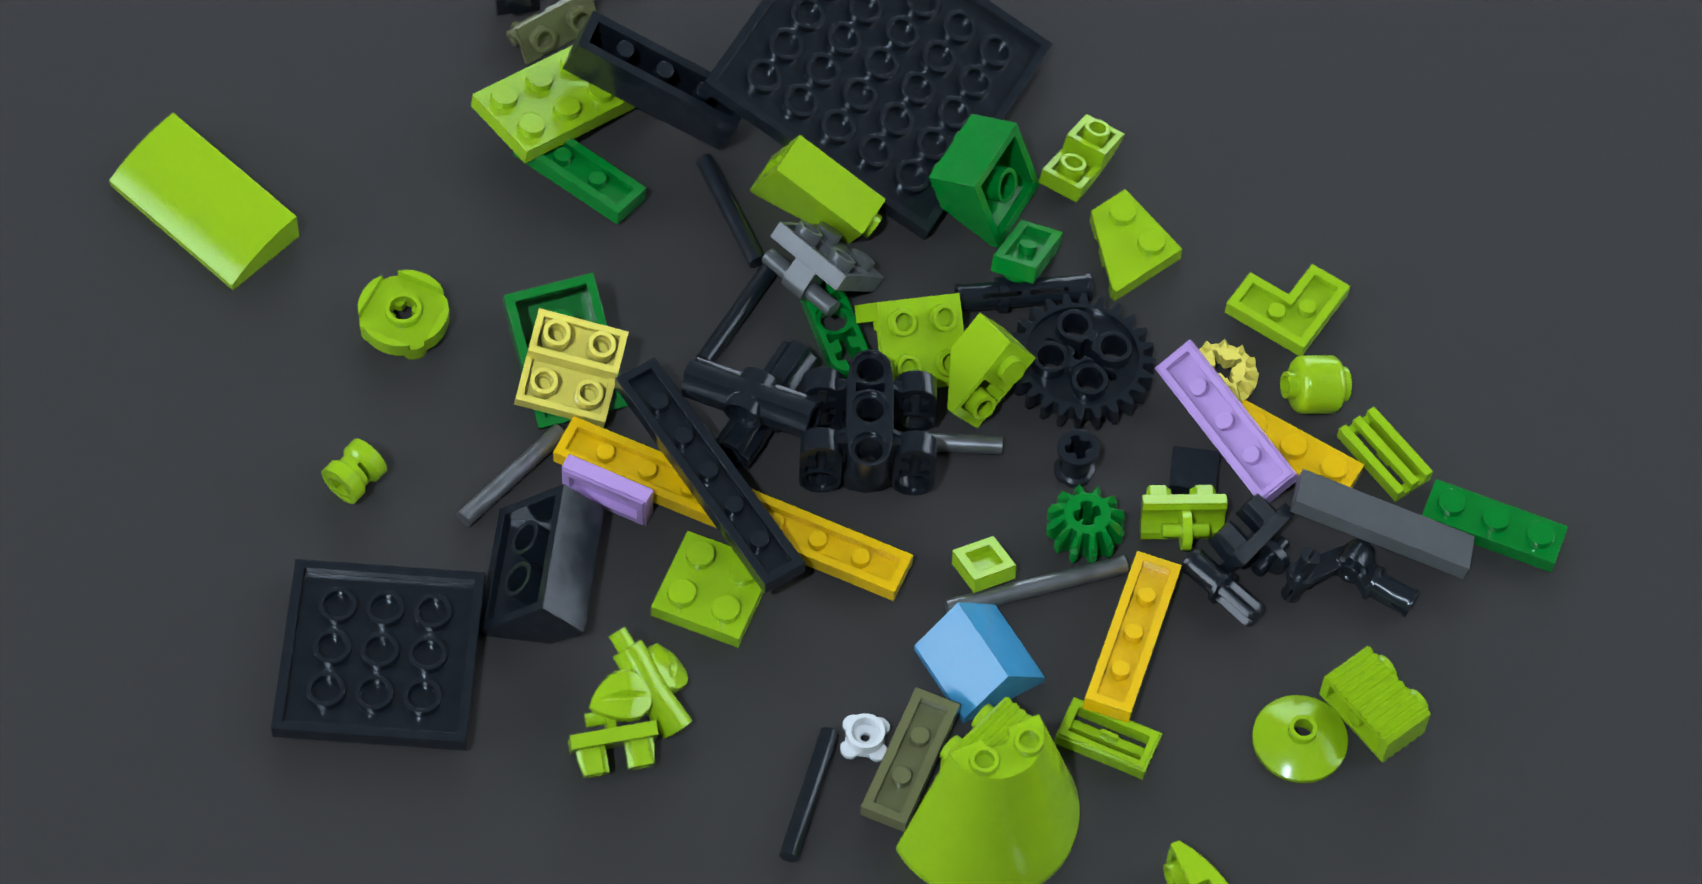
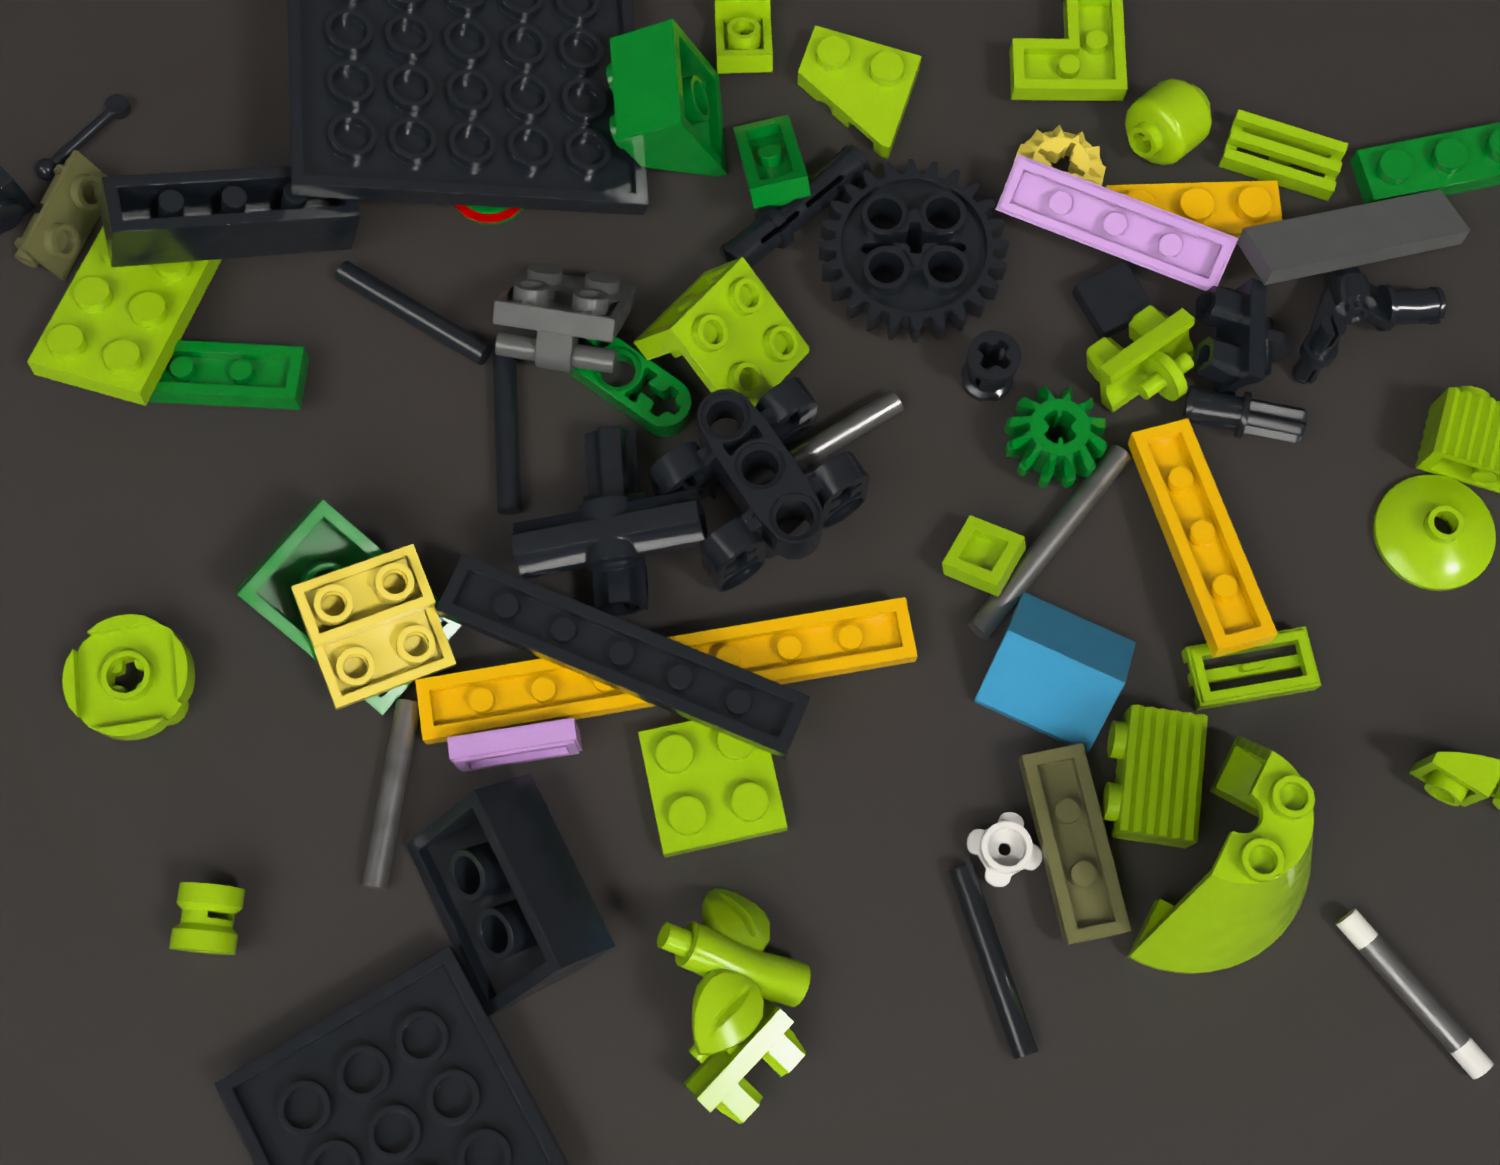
camera: 30 degrees left, 15 degrees up
(819, 190) = (498, 230): lime slope -> none
(983, 369) = (827, 325): lime slope -> none

